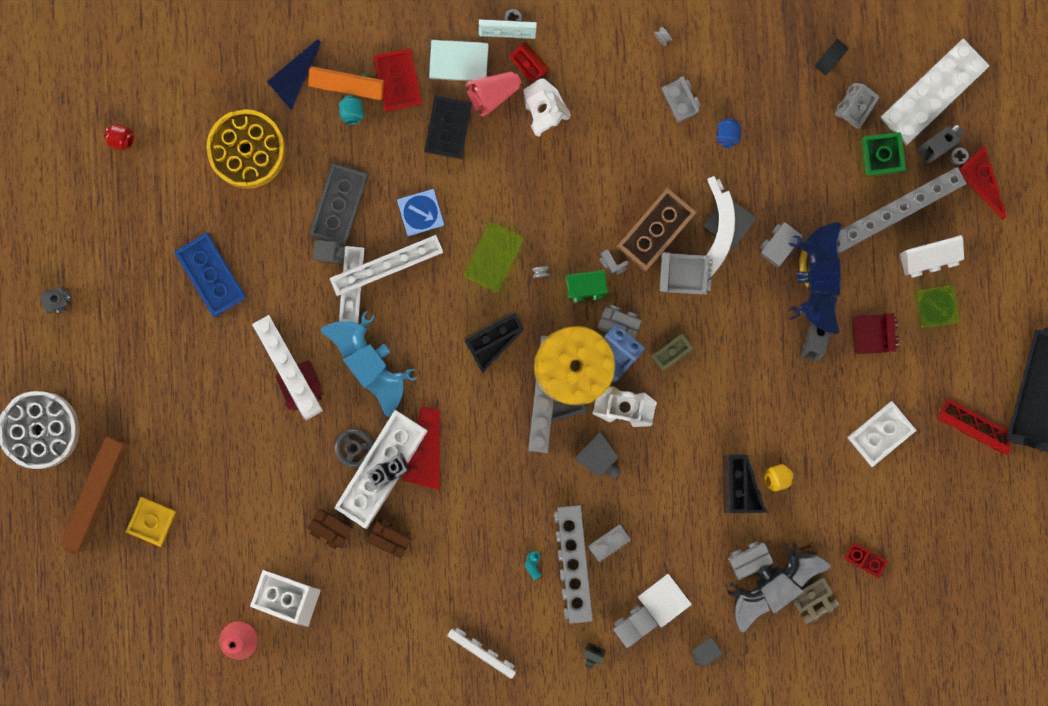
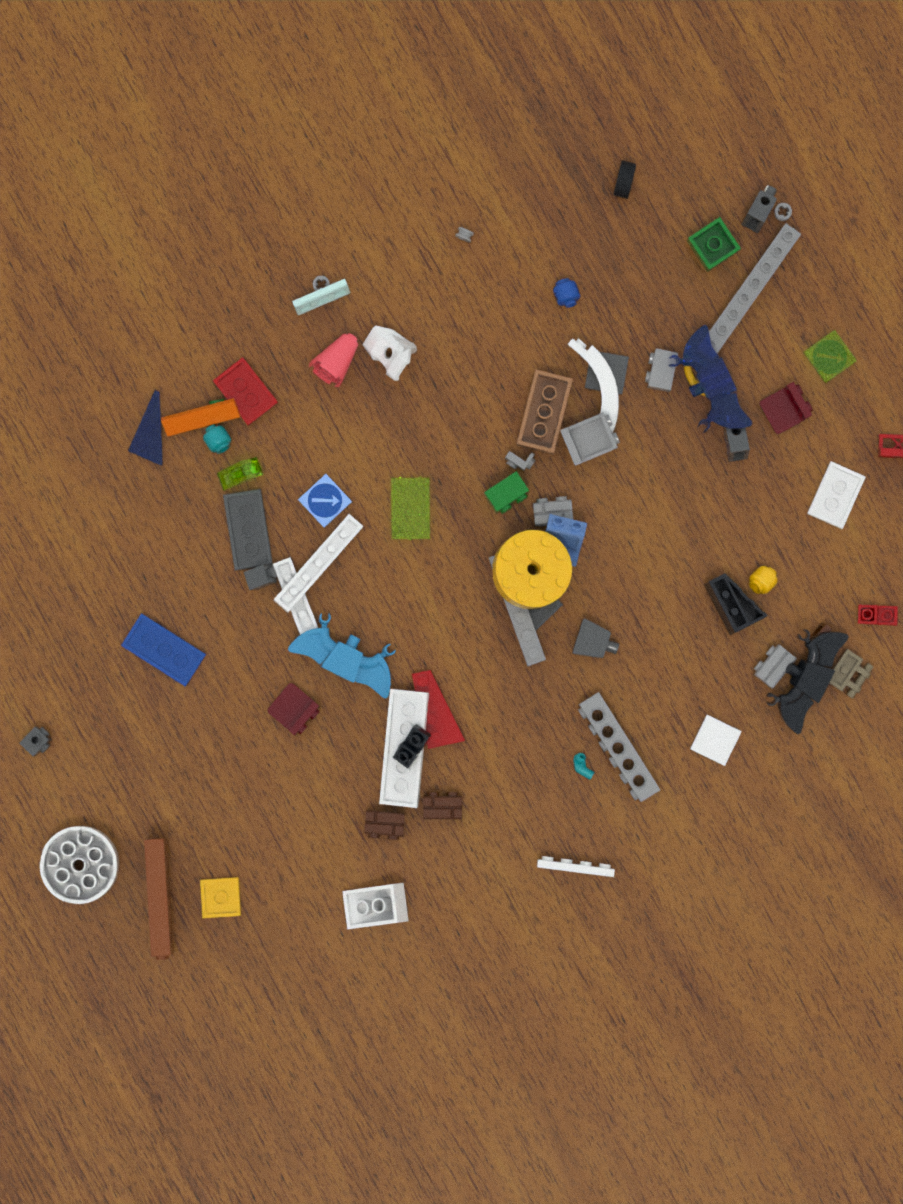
camera: 25 degrees left, 0 degrees up
(119, 137) = (20, 566): red head -> none
(244, 637) = (352, 956): coral cone -> none
(250, 168) = (160, 524): yellow brick -> none
(287, 367) = (275, 698): white plate -> none
(344, 436) = (371, 756): dark grey piece -> none
(356, 150) = (240, 473): none -> clear neon green slope
(448, 127) = (312, 411): black plate -> none
(458, 60) = (291, 347): light aqua tile -> none
(493, 339) = (446, 582): black wedge -> none
(529, 62) = (355, 317): red slope -> none
(541, 272) = (459, 500): light grey bush -> none
(593, 655) = (676, 819): pearl dark grey tile -> none
(609, 543) = (640, 713): light grey brick -> none
(634, 626) = (700, 776): light grey brick -> none
(641, 408) = (610, 580): white piece -> none
(672, 352) = (612, 514): olive plate -> none
(681, 100) = (508, 283): light grey bracket -> none
(705, 652) = (775, 767): dark grey brick -> none
(857, 104) = (668, 210): light grey bracket -> none
(932, 256) = (803, 314): white slope -> none
(935, 91) = (732, 164): white plate -> none
(979, 176) = (810, 221): red wing -> none

